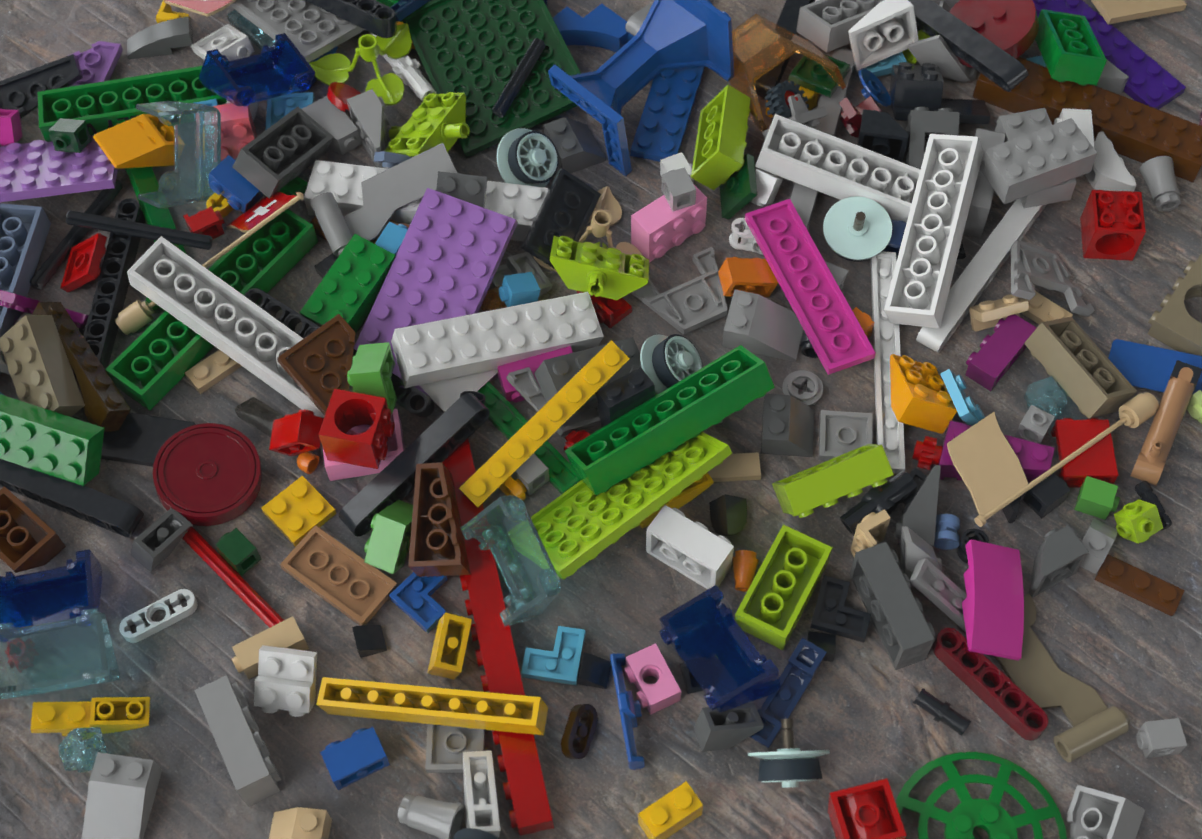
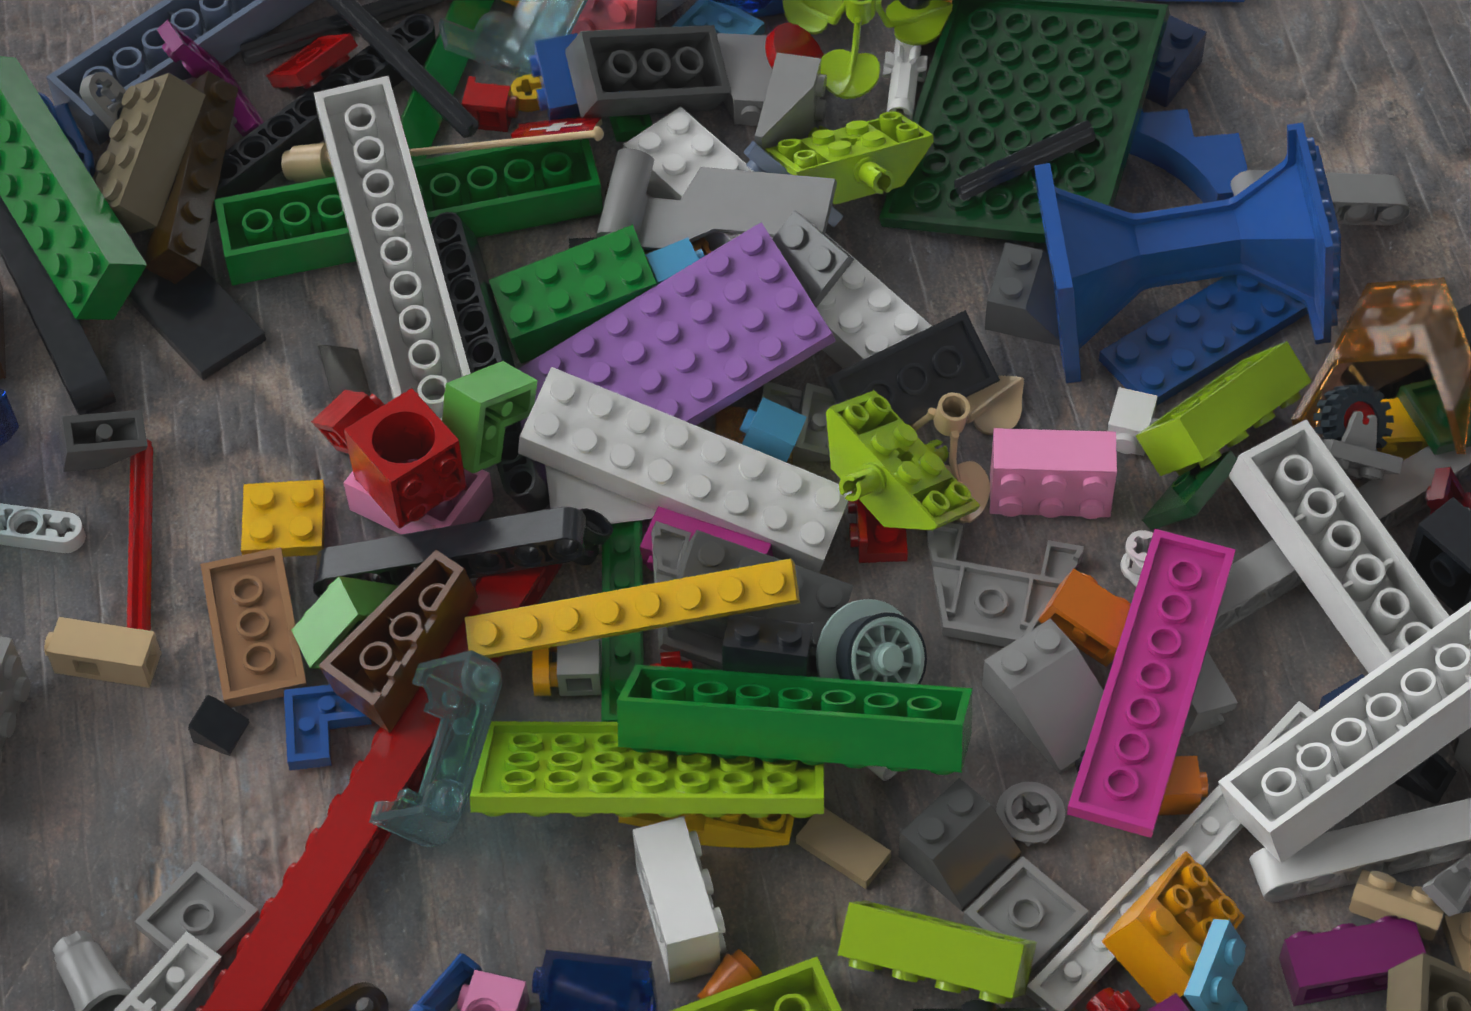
camera: 40 degrees right, 5 degrees down
(207, 473) = (219, 402): dark red brick -> none
(211, 371) = (334, 286): tan plate -> none
(238, 551) = (169, 515): dark green brick -> none
(286, 680) = (80, 700): white plate -> none
(307, 462) = (339, 468): orange hinge -> none
(321, 361) = (447, 345): reddish brown plate -> none
(354, 757) = (75, 847): blue brick -> none
(433, 705) = (202, 852): yellow brick -> none
(449, 646) = (291, 799): yellow brick -> none
(527, 158) = (940, 271): light aqua piece -> none
(557, 665) = (408, 922): medium azure plate -> none
(594, 671) = (428, 958): black slope -> none
(678, 189) = (1080, 433): light grey brick -> none
(728, 514) = (777, 900): black brick -> none
(767, 187) = (1227, 517): white brick -> none
(857, 228) = (1299, 654): light aqua piece -> none

